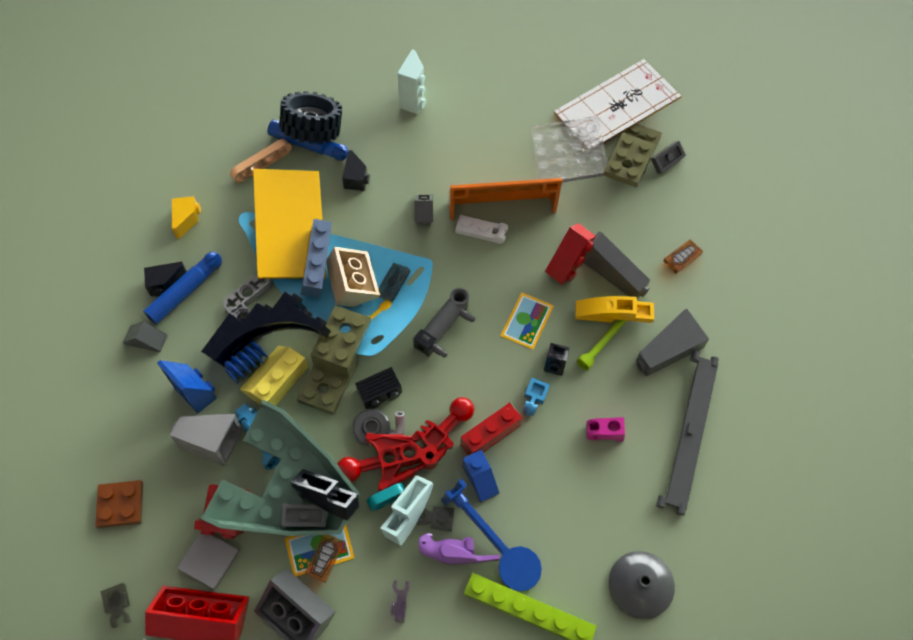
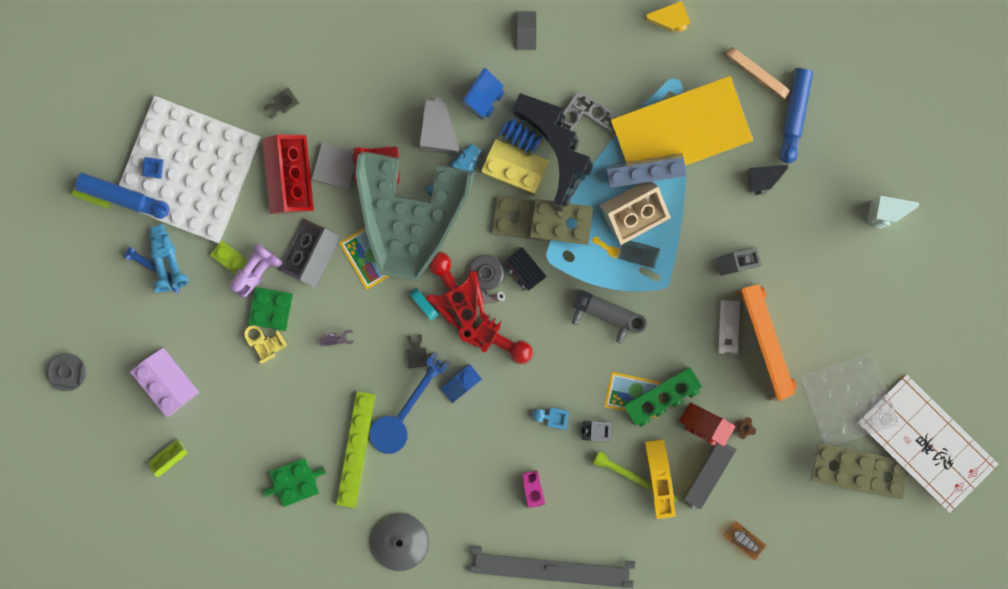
camera: 80 degrees right, 25 degrees up
(119, 504) = (365, 71): dark orange plate -> none
(161, 277) = (591, 24): black slope -> none
(182, 287) = (587, 48): blue piece -> none
(302, 515) = (386, 238): dark grey plate -> none
(310, 117) = (830, 110): black wheel -> none
(324, 558) = (358, 265): tile -> none
(326, 494) = (407, 252): black slope -> none
(407, 510) = (415, 326): light aqua slope -> none
(452, 551) = (389, 372): medium lavender animal -> none
(491, 430) = (506, 383): red brick -> none
(540, 319) = (634, 407): none -> green brick
(668, 157) = (868, 510): dark grey plate -> none
(672, 344) = (640, 543): dark grey slope -> none

